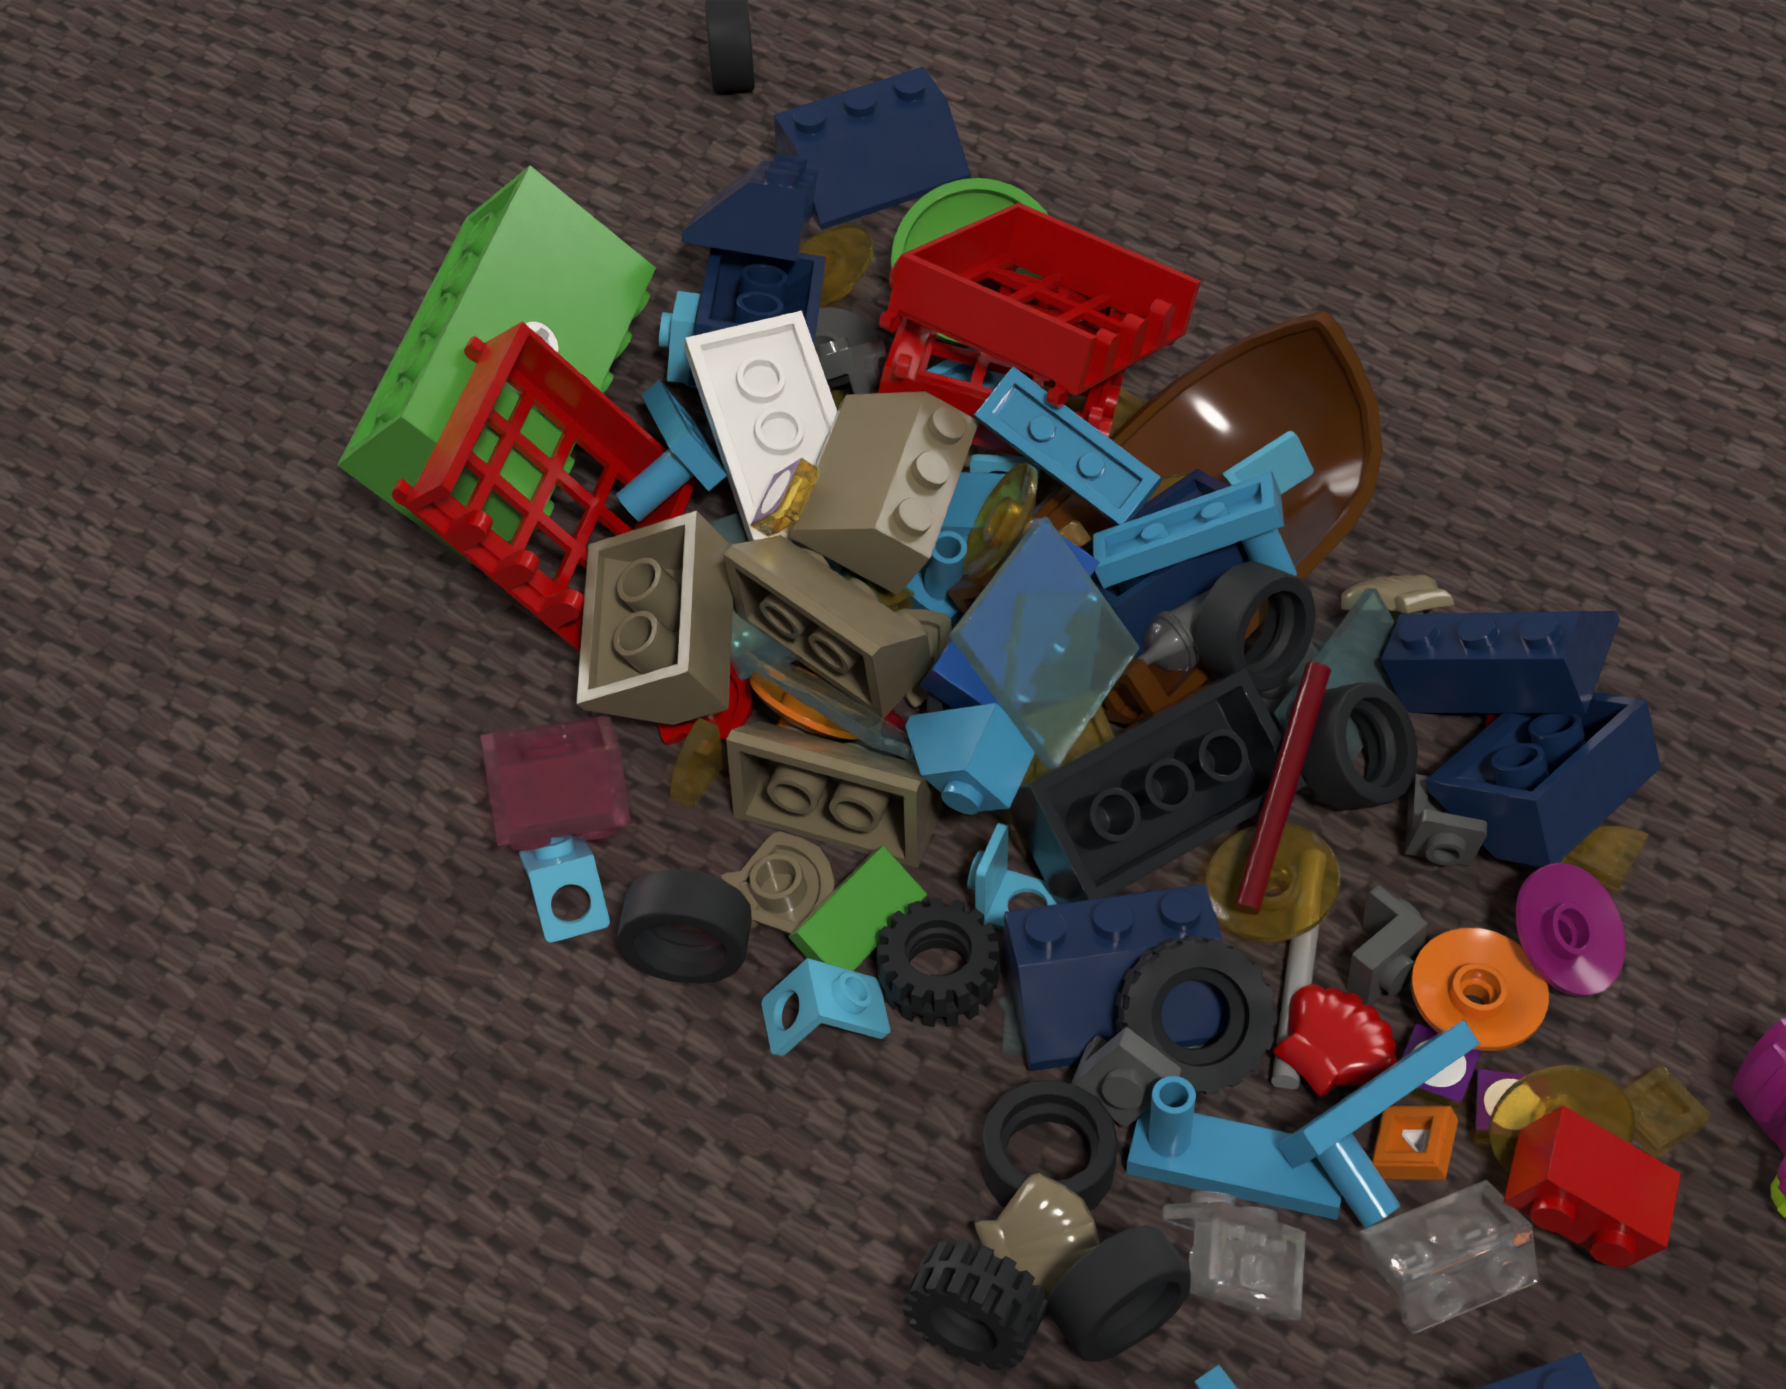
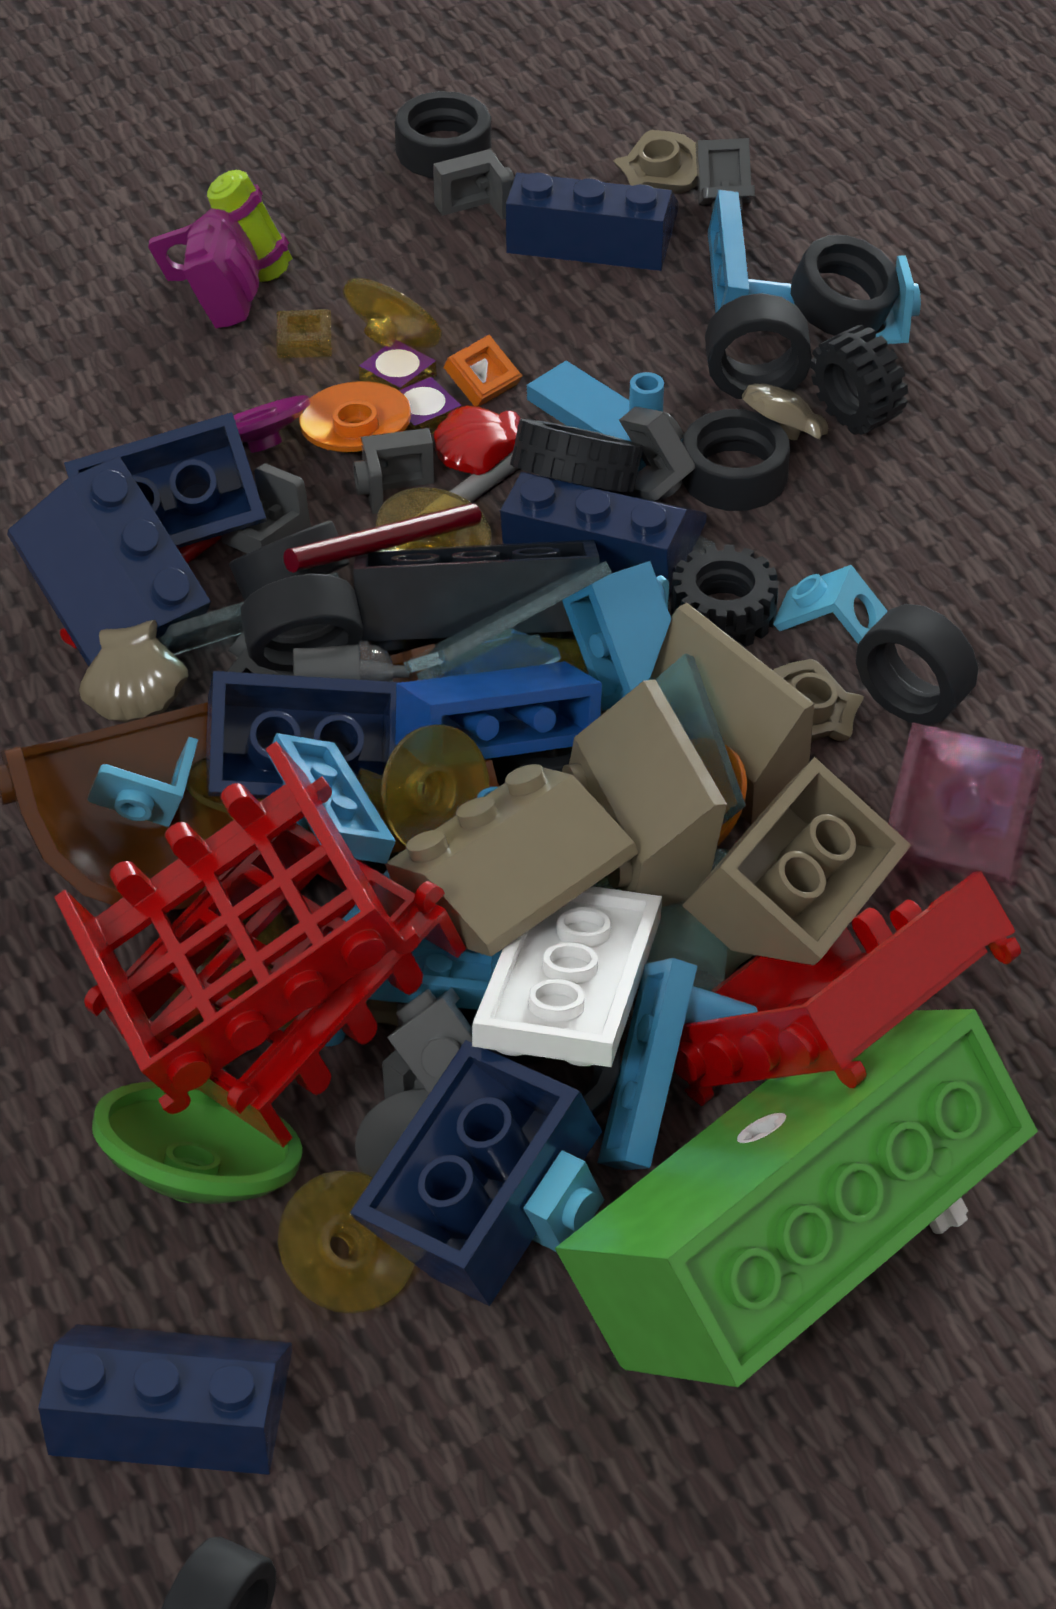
camera: 150 degrees left, 5 degrees down
(760, 212) = (393, 1281): dark blue slope -> none
(785, 497) = (618, 878): clear yellow tile -> none
(853, 915) = (788, 644): bright green tile -> none
(1237, 513) = (295, 683): dark azure piece -> none
(1242, 1255) = (666, 333): clear bracket -> none
(1331, 1135) = (494, 368): dark azure piece -> none
(1453, 1255) = (517, 311): clear bracket -> none
(1592, 1188) = (421, 270): red brick -> none

